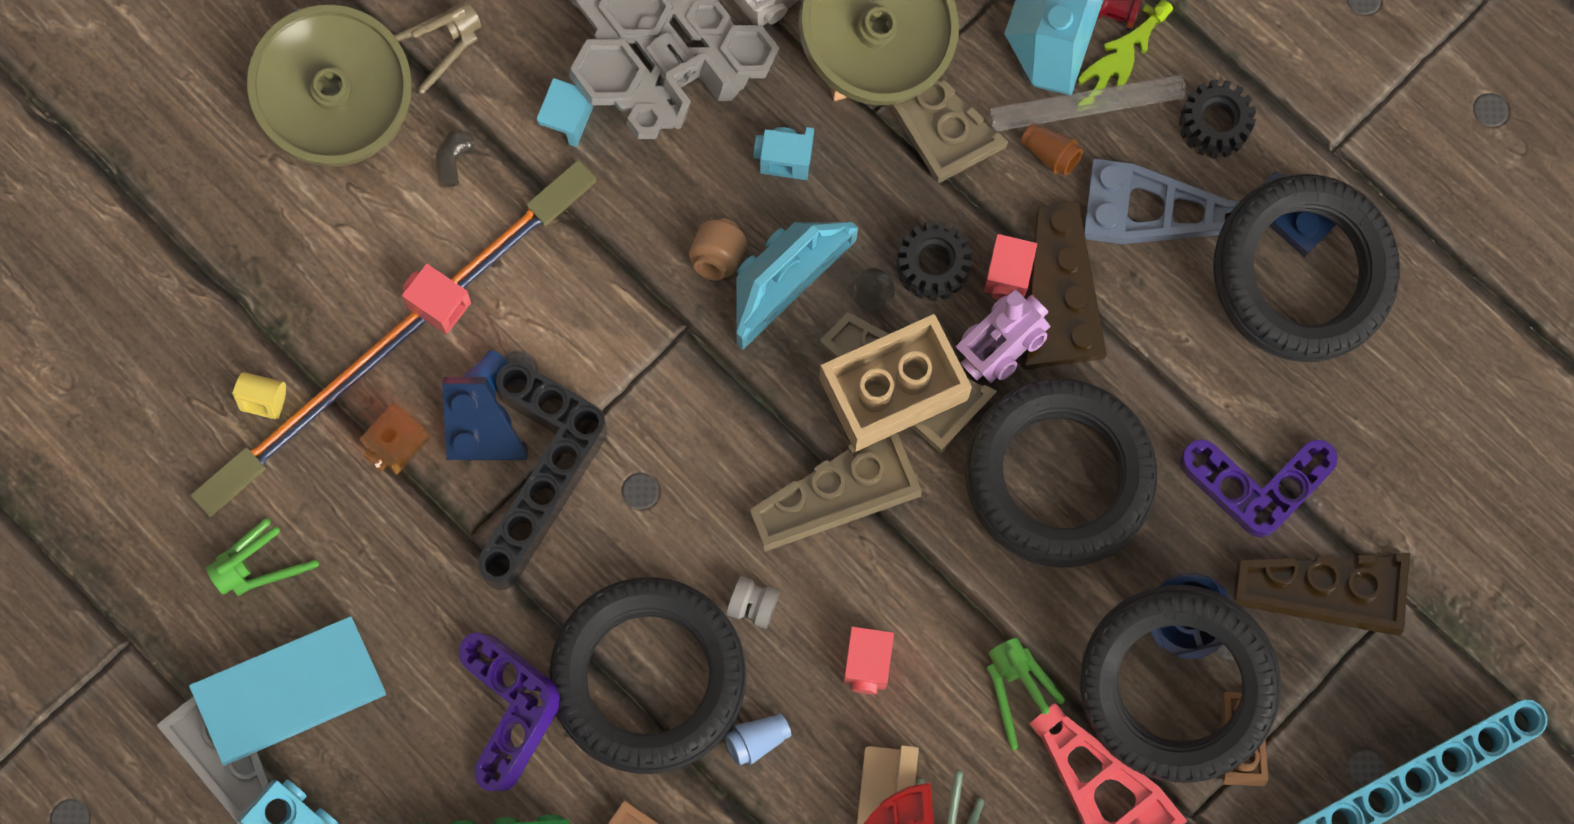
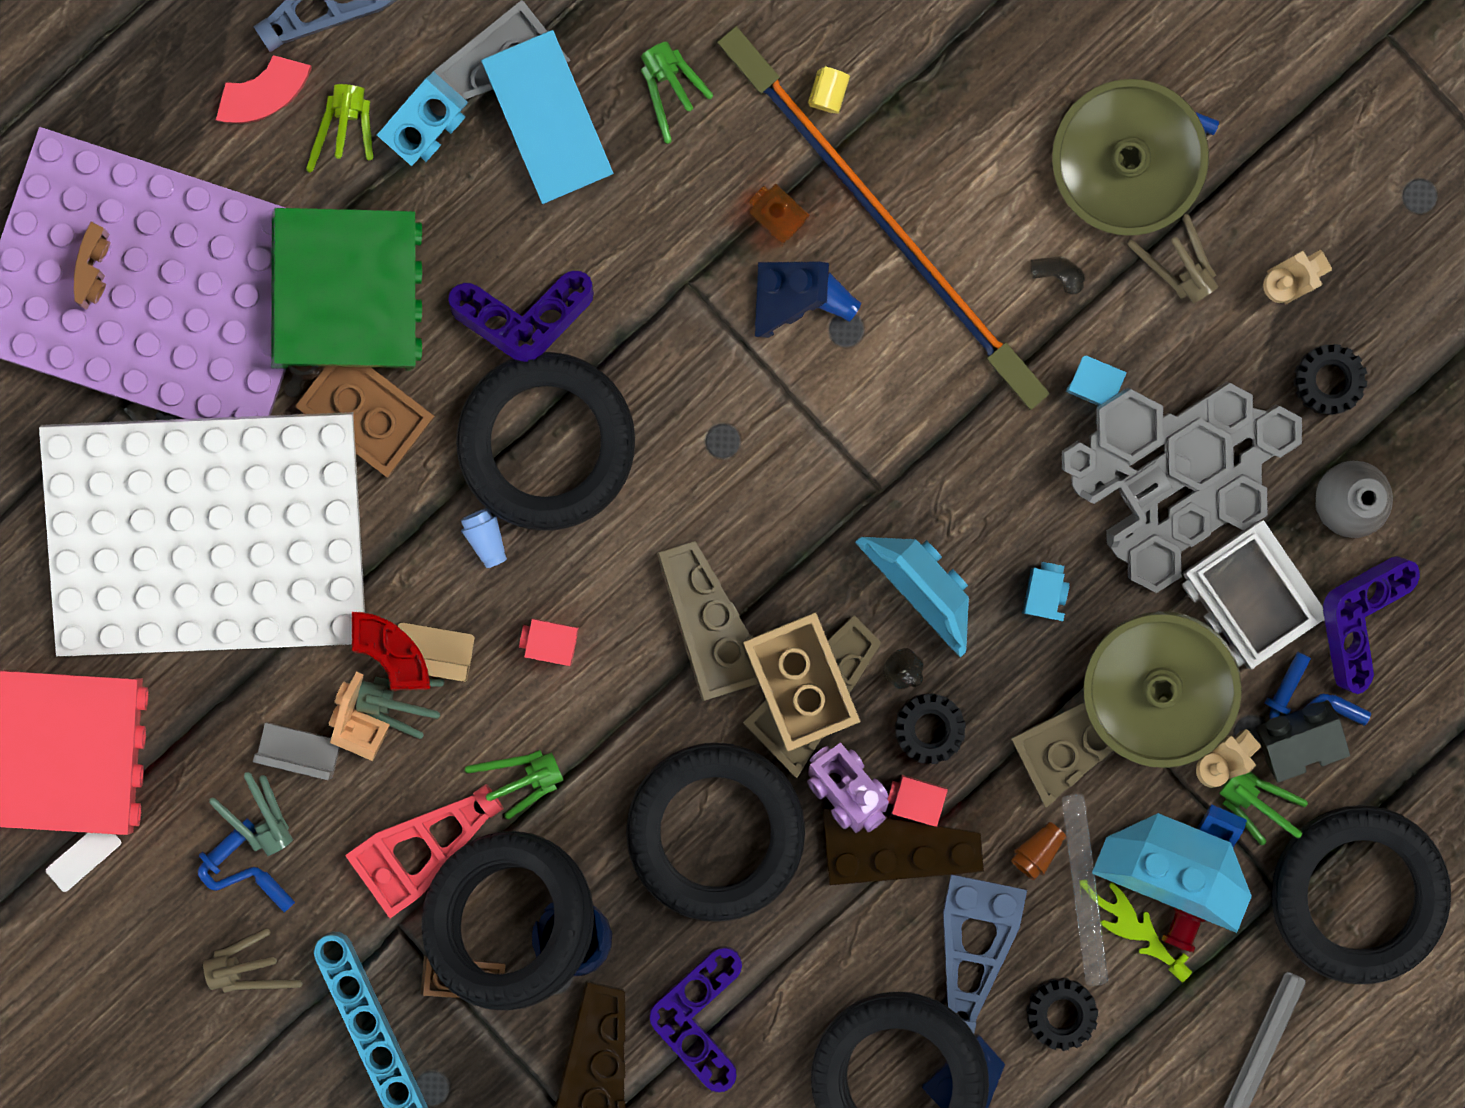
camera: 105 degrees right, 15 degrees up
(435, 298) = (911, 254): coral brick -> none
(545, 473) = (739, 355): black beam -> none
(718, 249) = (950, 523): medium nougat head -> none
(753, 602) = (608, 540): light grey wheel -> none

